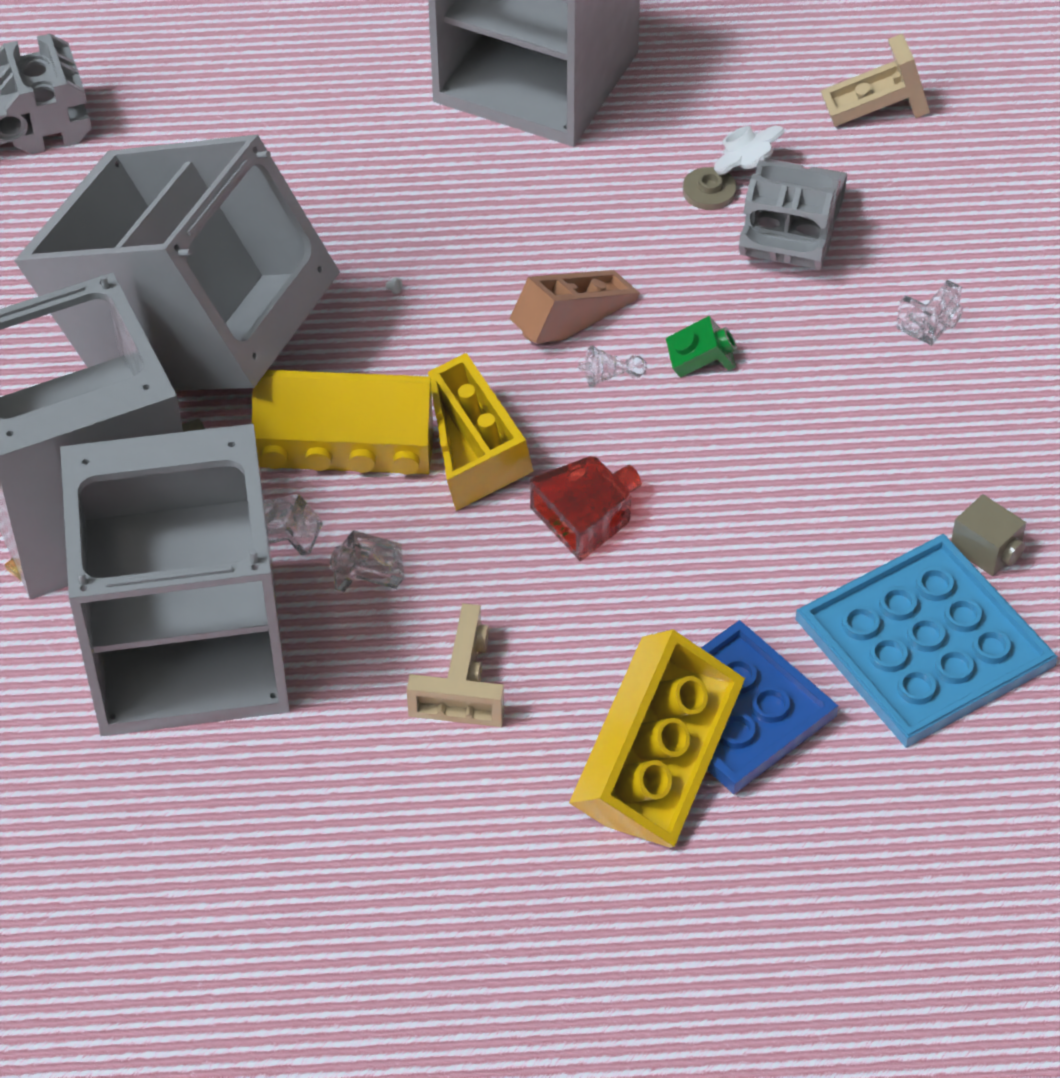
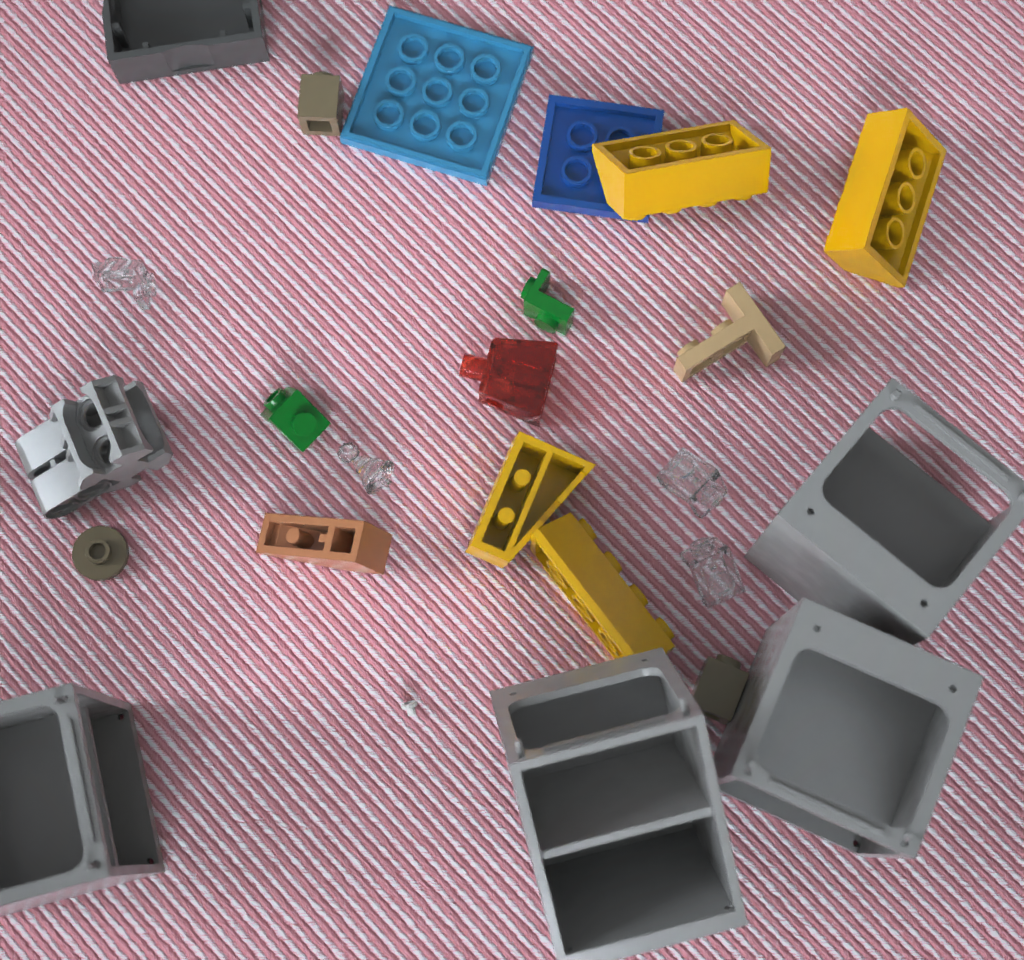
camera: 130 degrees left, 25 degrees up
(466, 902) = (886, 197): none -> yellow slope
(626, 564) = (546, 311): none -> green bracket
(746, 148) = (45, 535): white plate -> none

